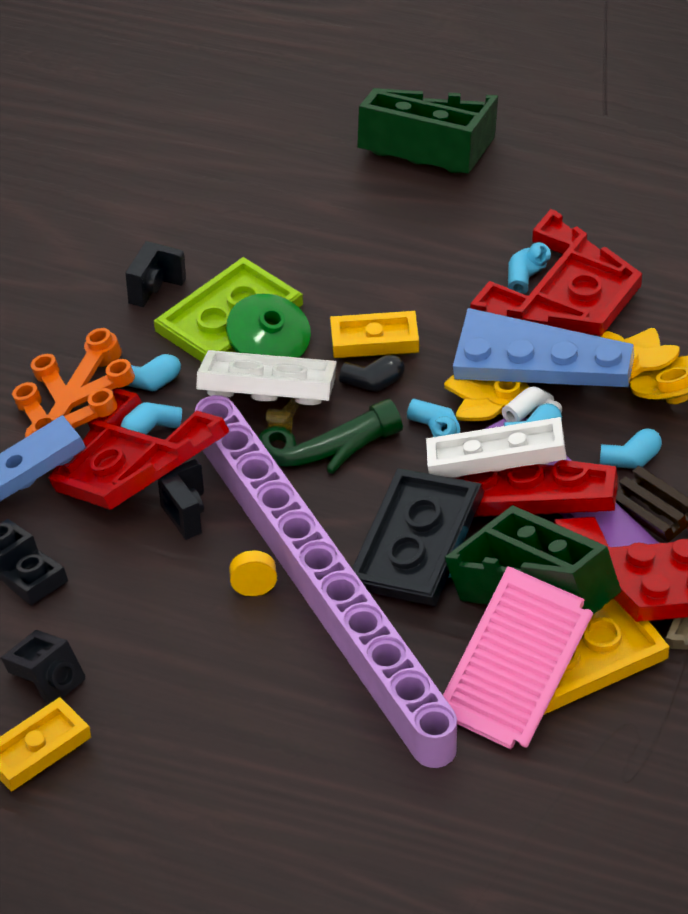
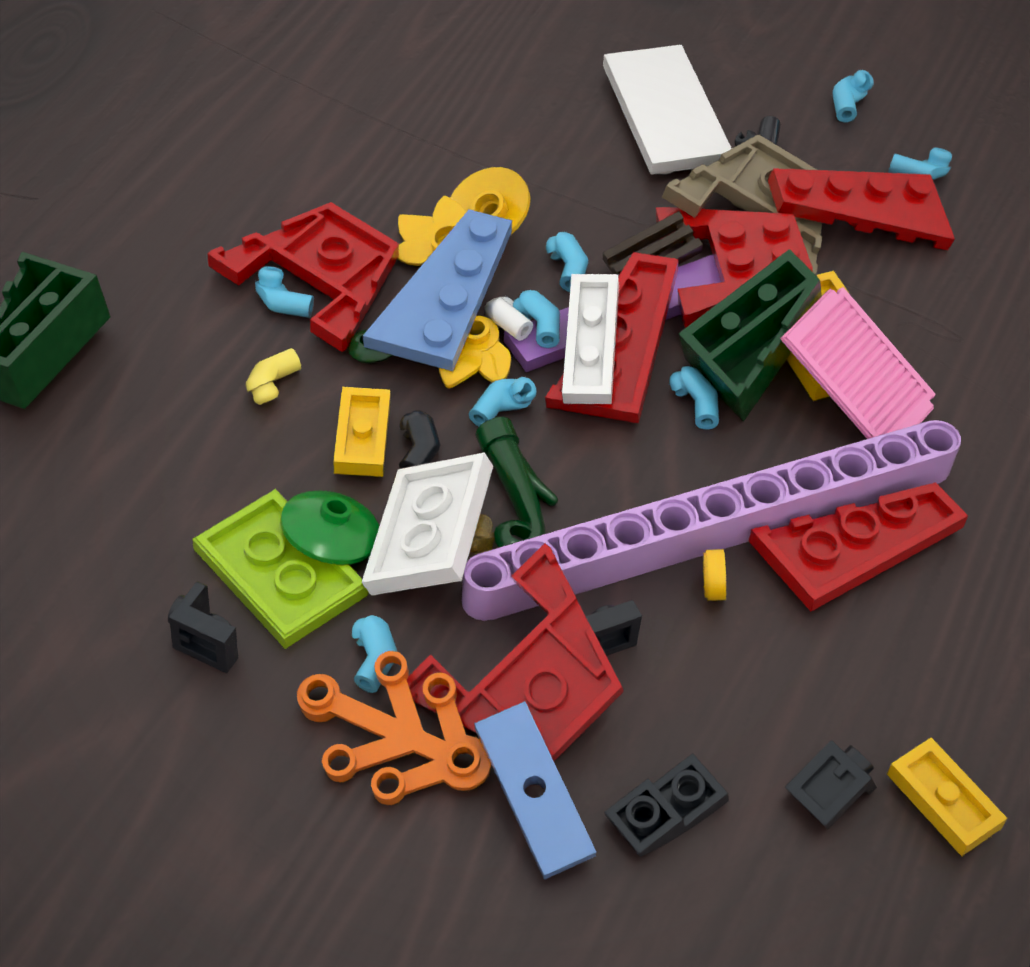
camera: 90 degrees left, 5 degrees up
(148, 415) = (459, 656): medium azure arm -> none
(304, 669) = (854, 544): none -> red wing
(412, 534) = (679, 427): black tile -> none
(432, 272) = (269, 370): none -> light yellow arm

